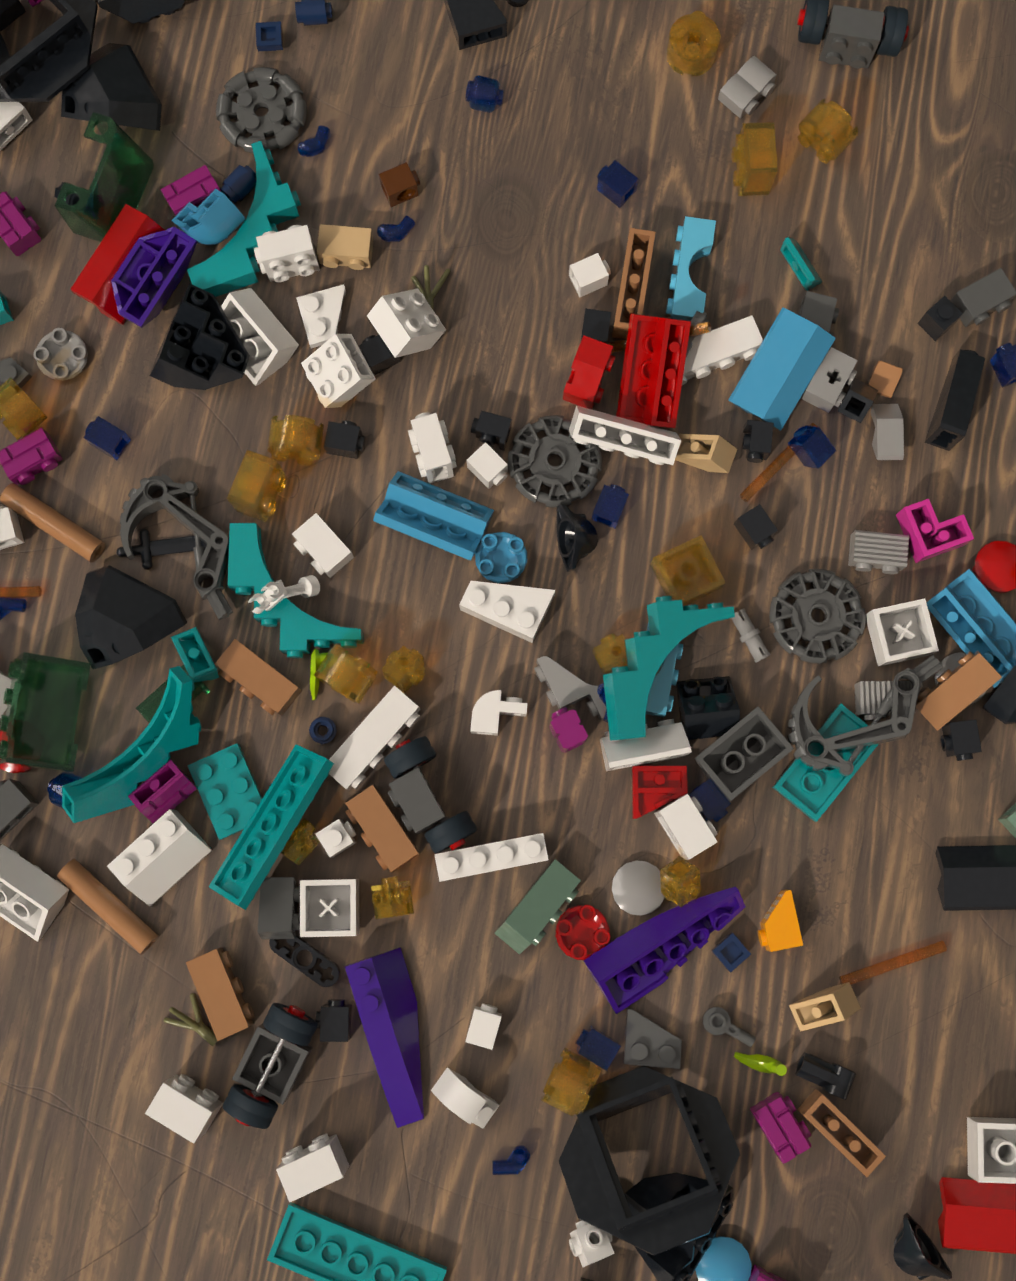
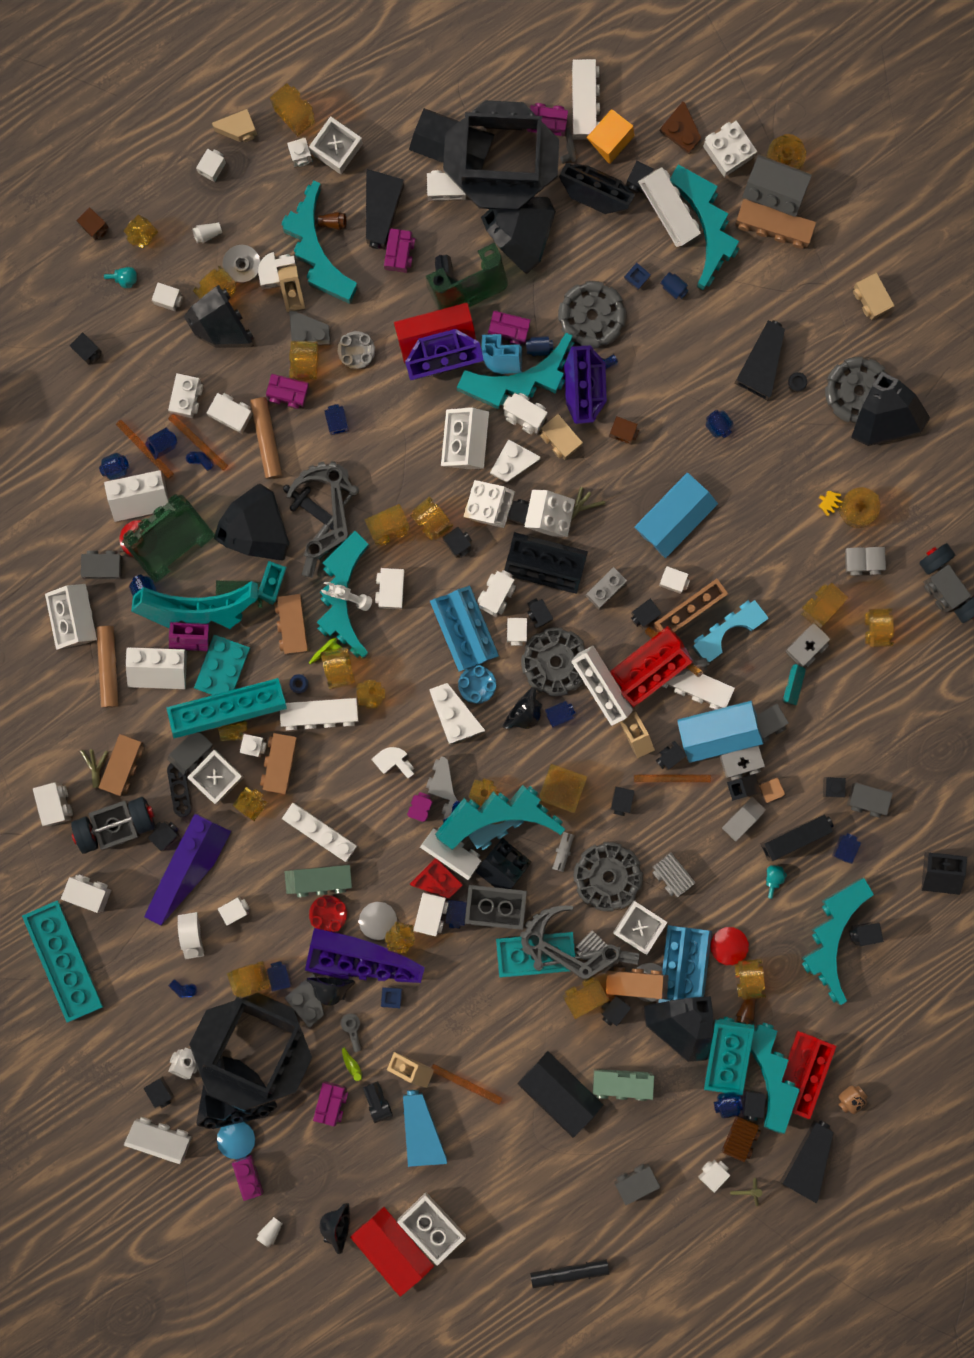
camera: 45 degrees right, 5 degrees up
(200, 345) = (431, 418): black brick -> none
(315, 172) = (585, 383): none -> dark purple wedge
(395, 233) = (596, 455): clear blue arm -> none
(418, 800) = (311, 768): brick -> none
(450, 375) = (545, 562): none -> black slope
(529, 213) = (676, 515): none -> dark azure slope
(532, 343) = (606, 588): none -> light grey brick
(587, 373) = (617, 633): red brick -> none
(617, 183) = (739, 544): clear blue brick -> none
(658, 70) = (829, 502): none -> yellow piece
(663, 1007) = (330, 990): none -> black hat
(773, 225) = (797, 648): none -> light grey brick
(780, 924) = (428, 1009): light orange slope -> none
(811, 446) = (694, 787): clear blue brick -> none
(841, 1133) = (355, 1134): medium nougat brick -> none
(907, 1065) = (421, 1134): none -> dark azure slope
(923, 755) = (585, 997): none -> clear yellow brick
(927, 535) = (705, 895): dark pink brick -> none
(974, 459) = (774, 878): none -> teal piece

